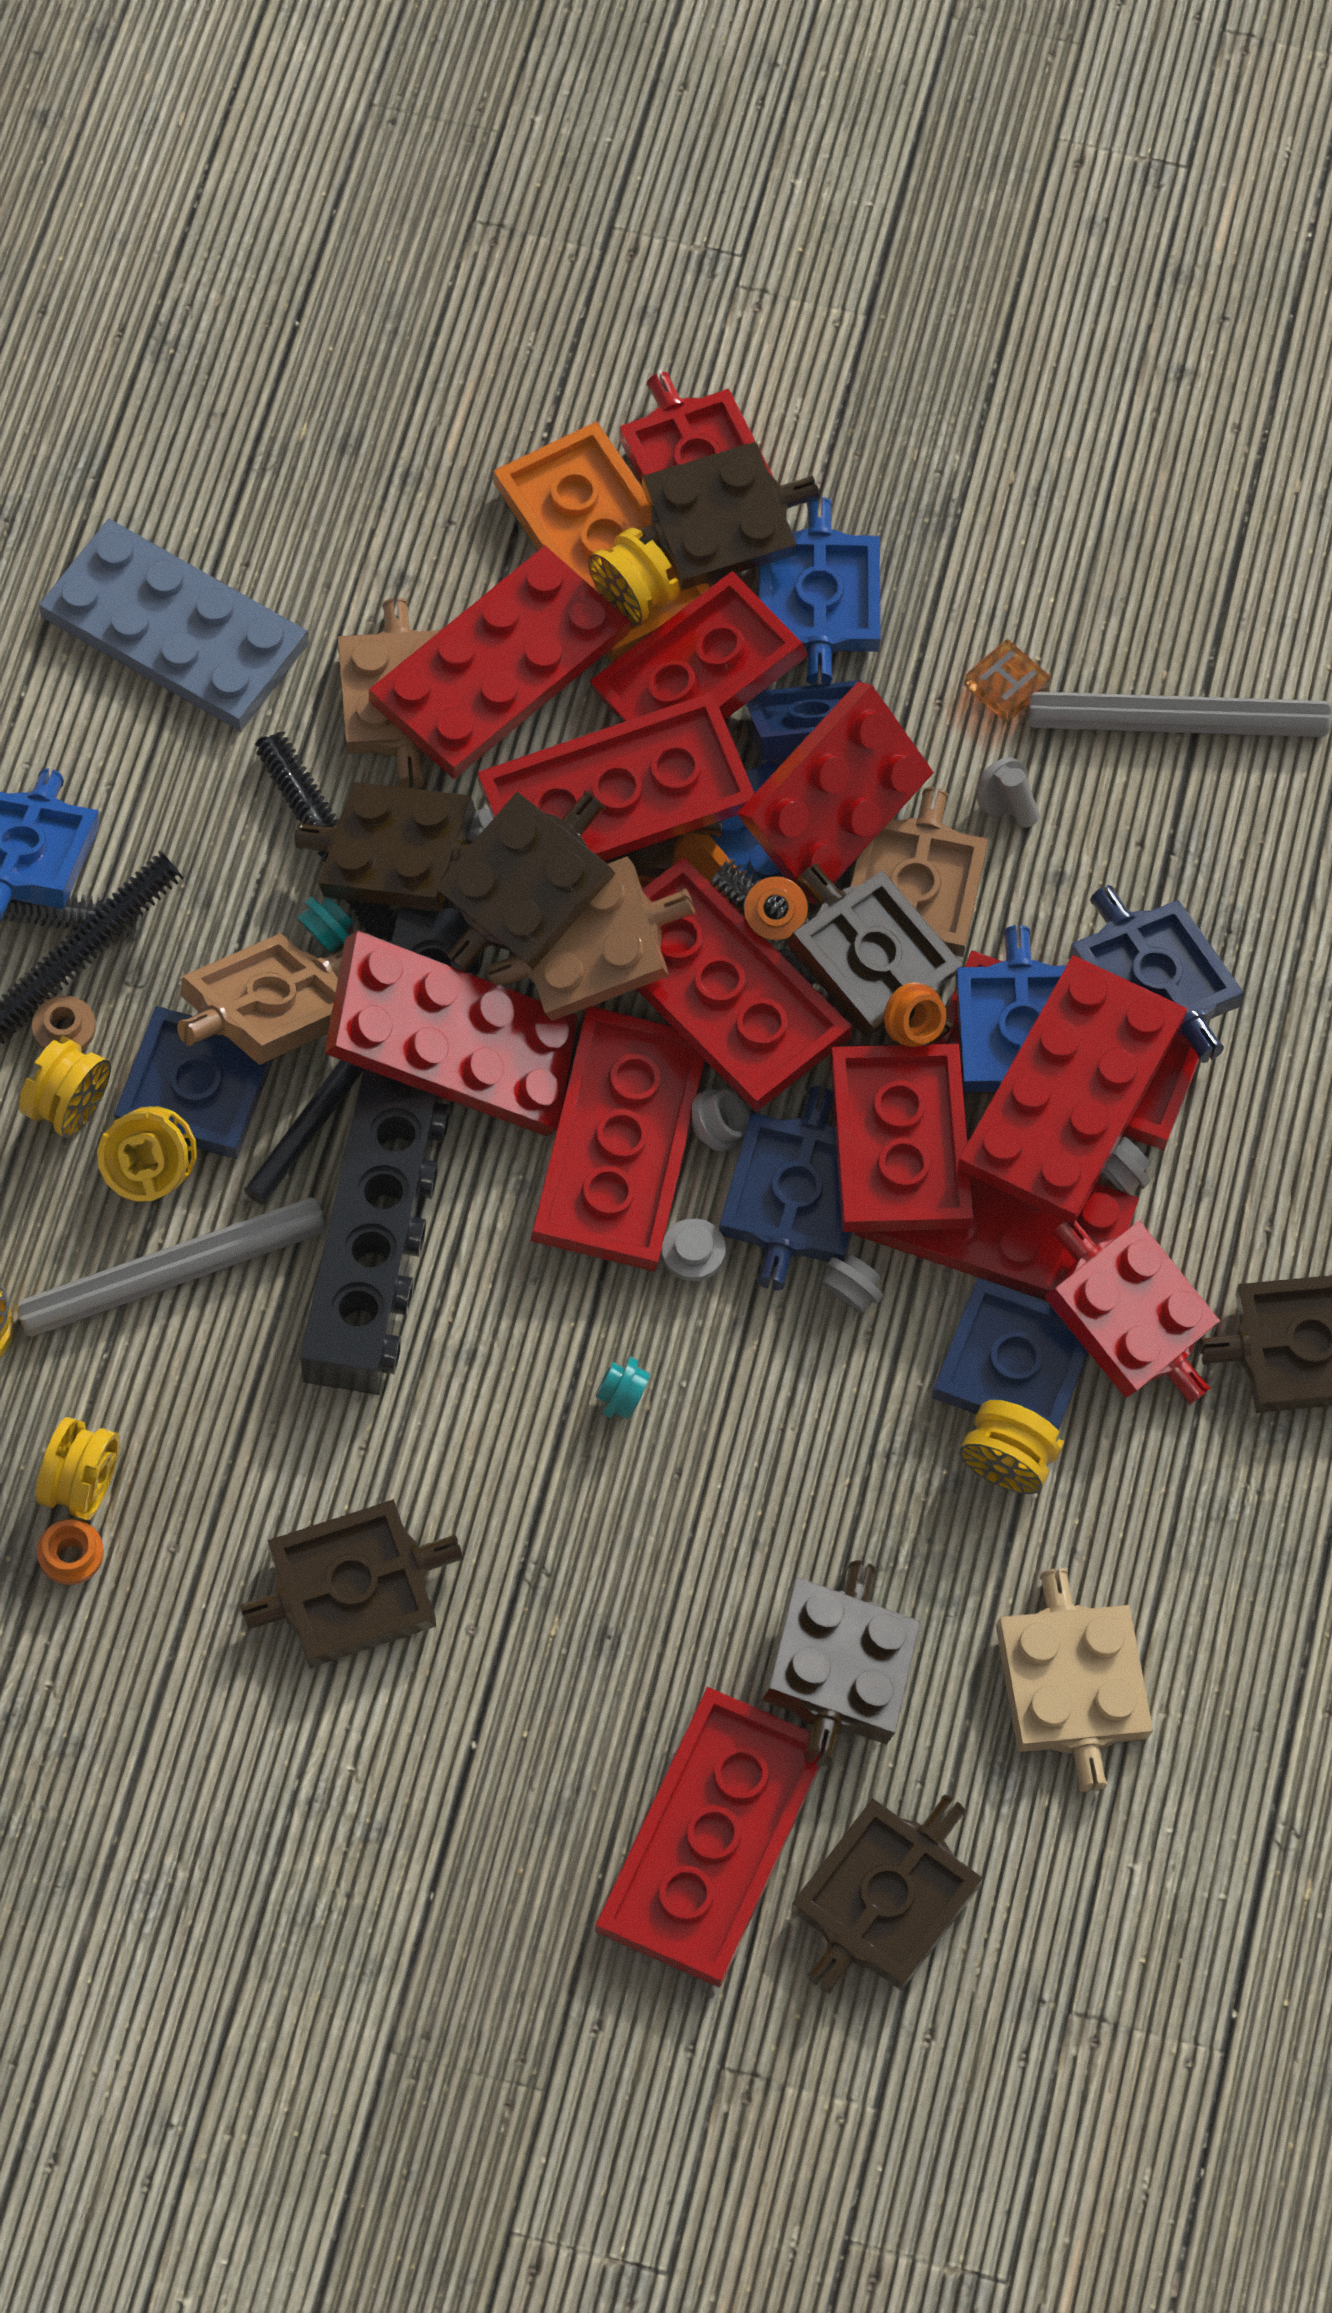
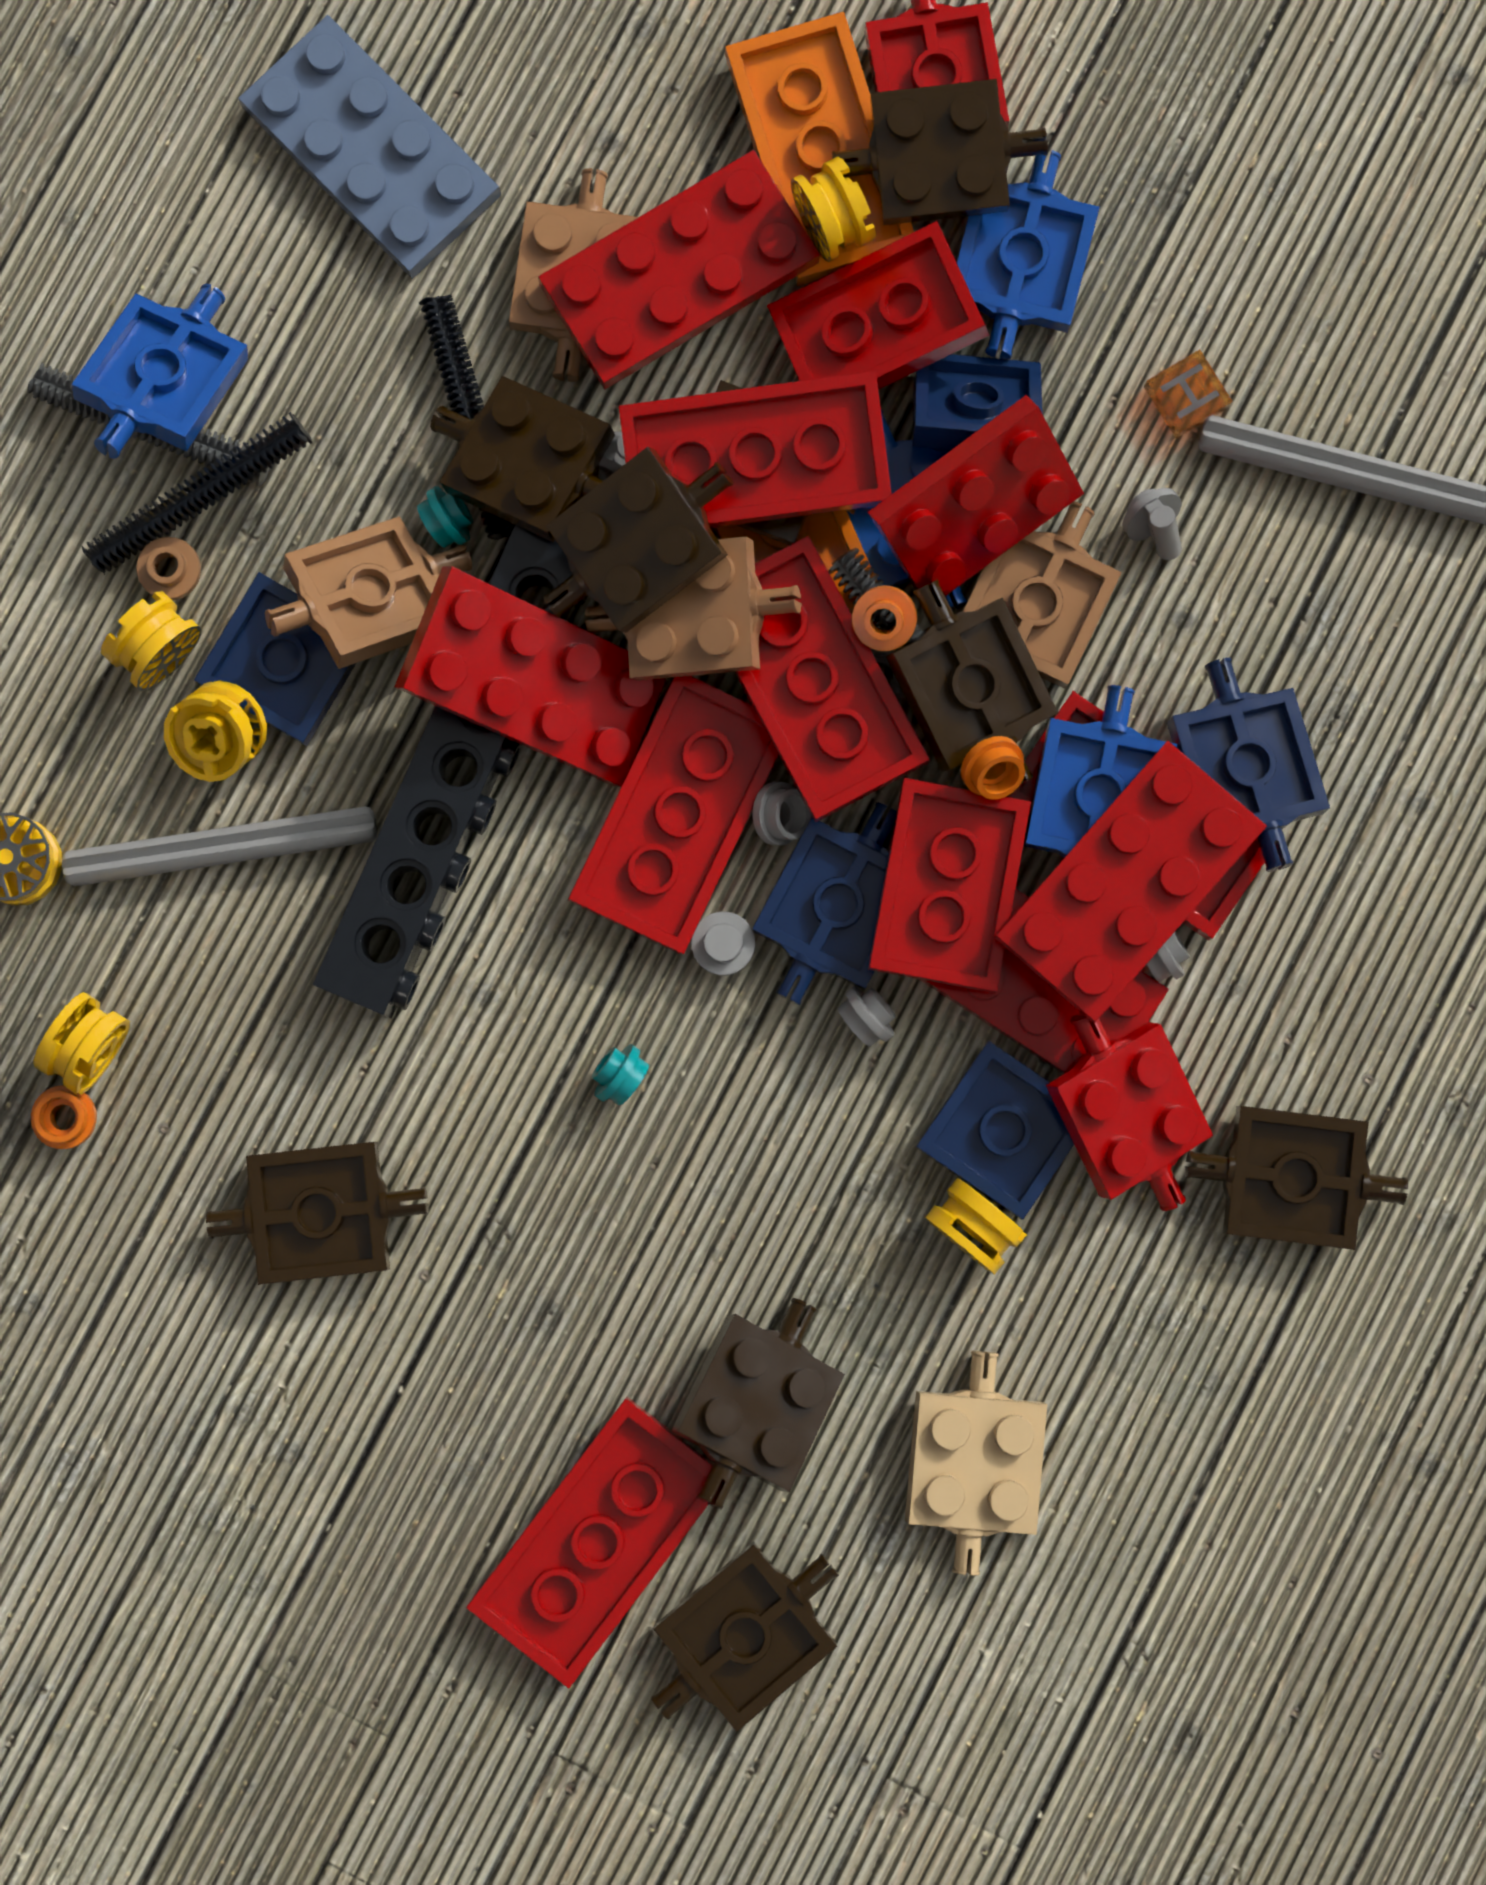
camera: 15 degrees right, 20 degrees up
(302, 1131) = (364, 742): black bar -> none

